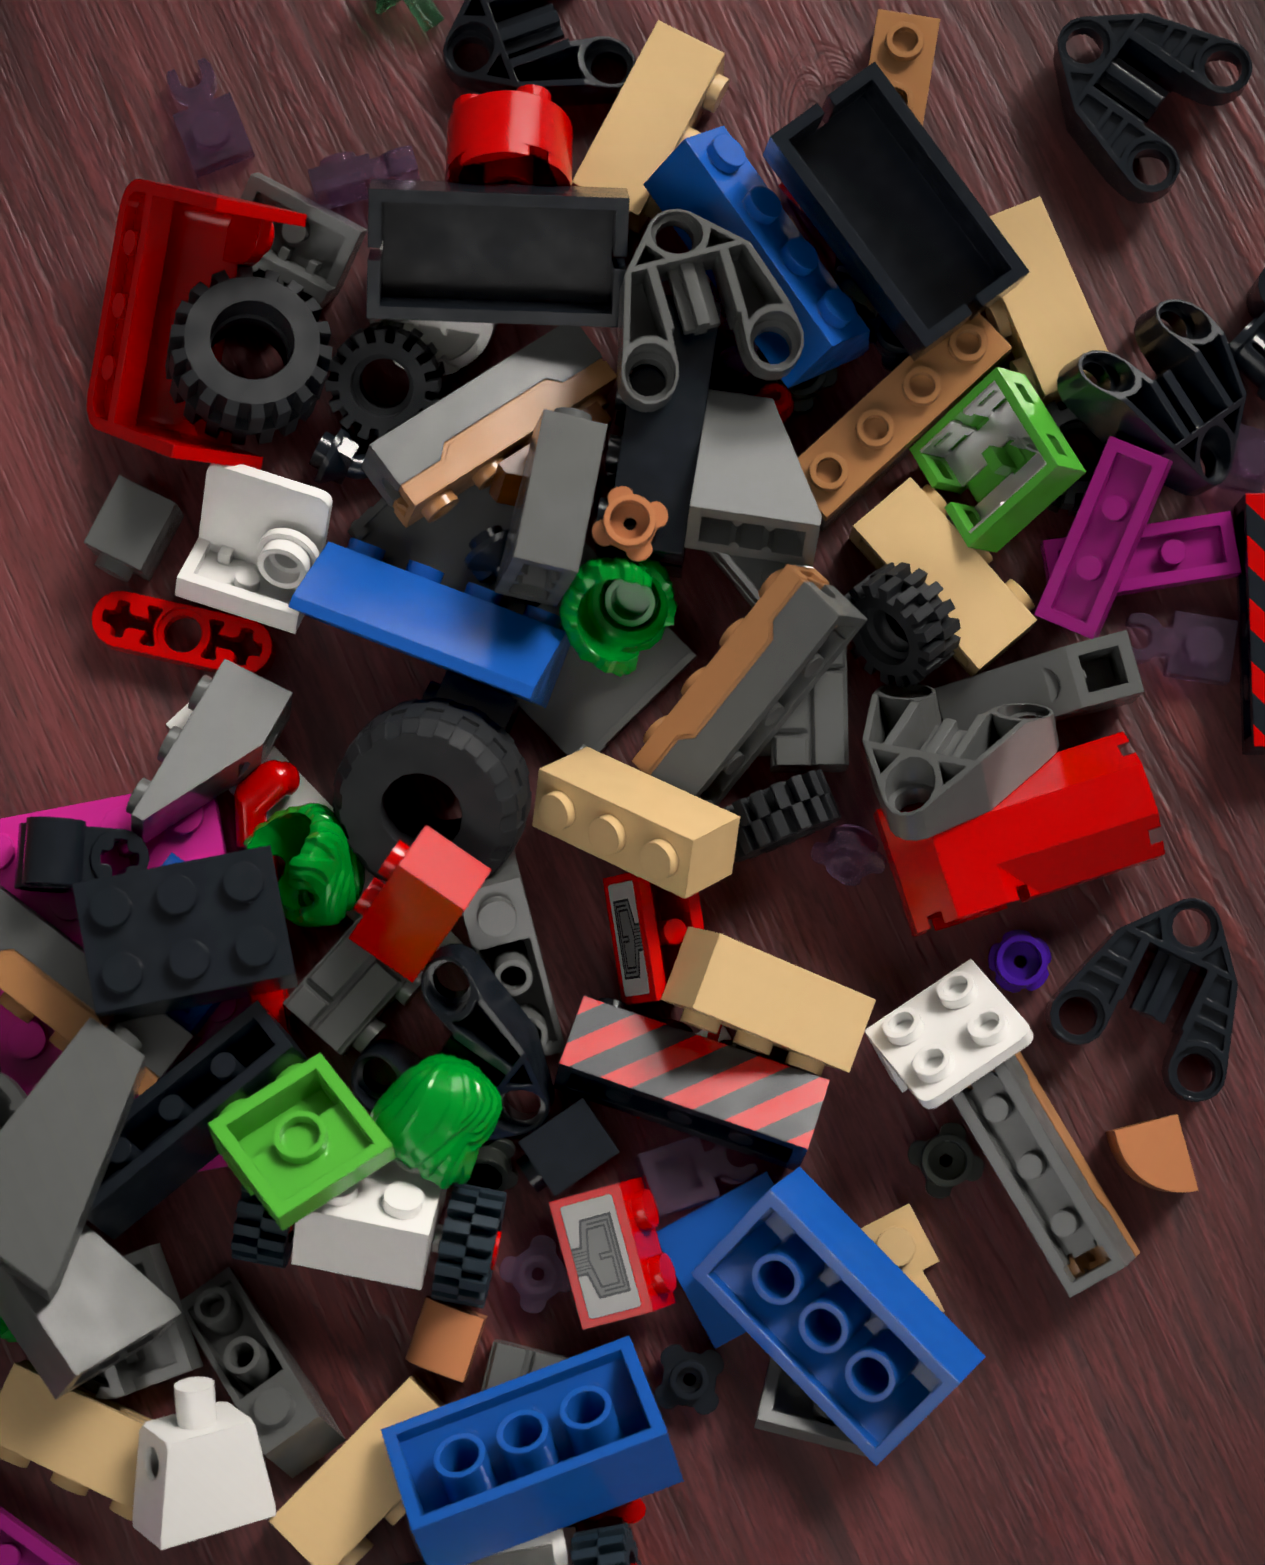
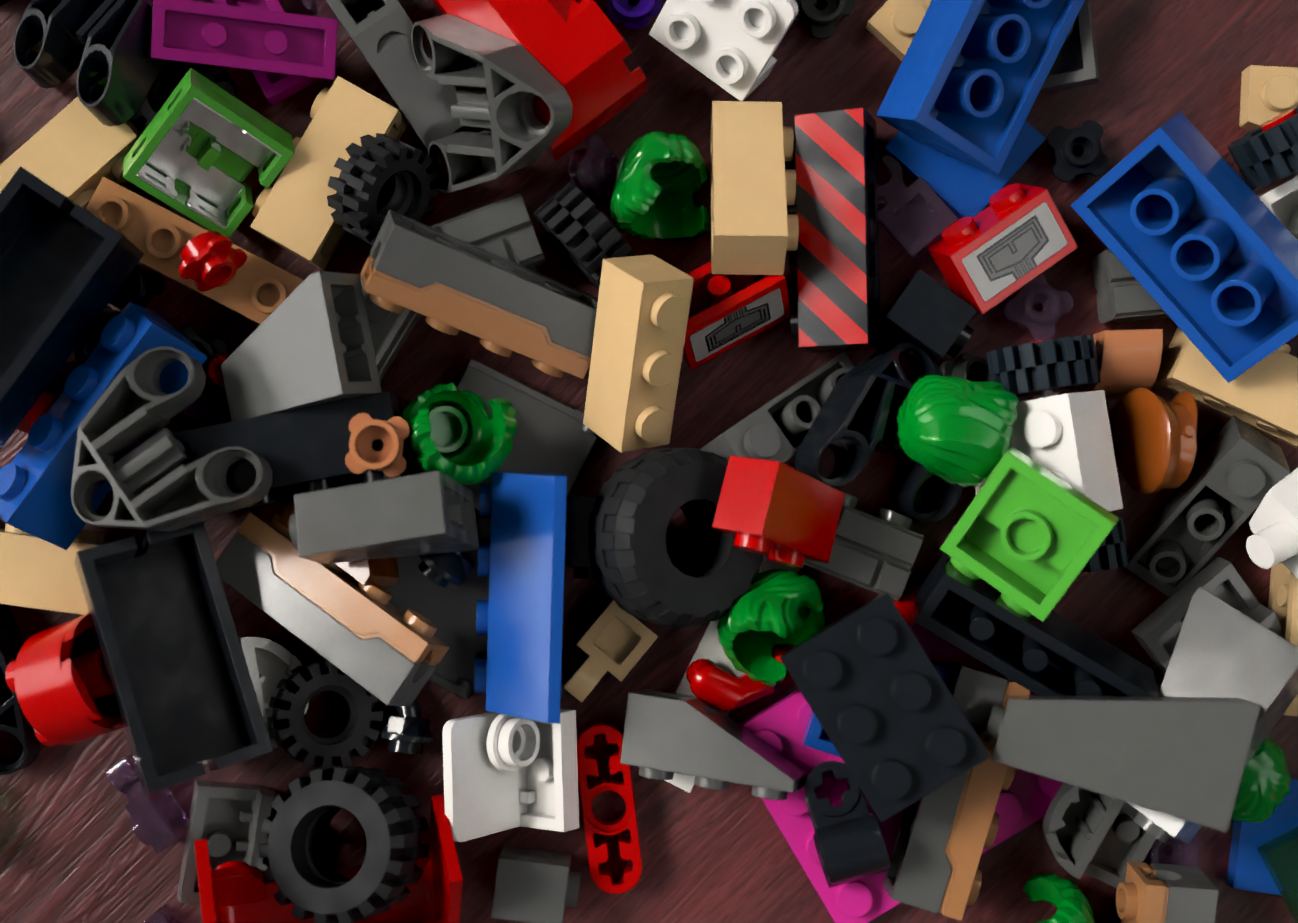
camera: 110 degrees left, 5 degrees up
(347, 695) = (613, 645): none -> tan plate
(350, 1338) = (1155, 439): none -> dark orange piece
(803, 912) = (659, 189): none -> green hair
(879, 424) = (210, 260): none -> red plate

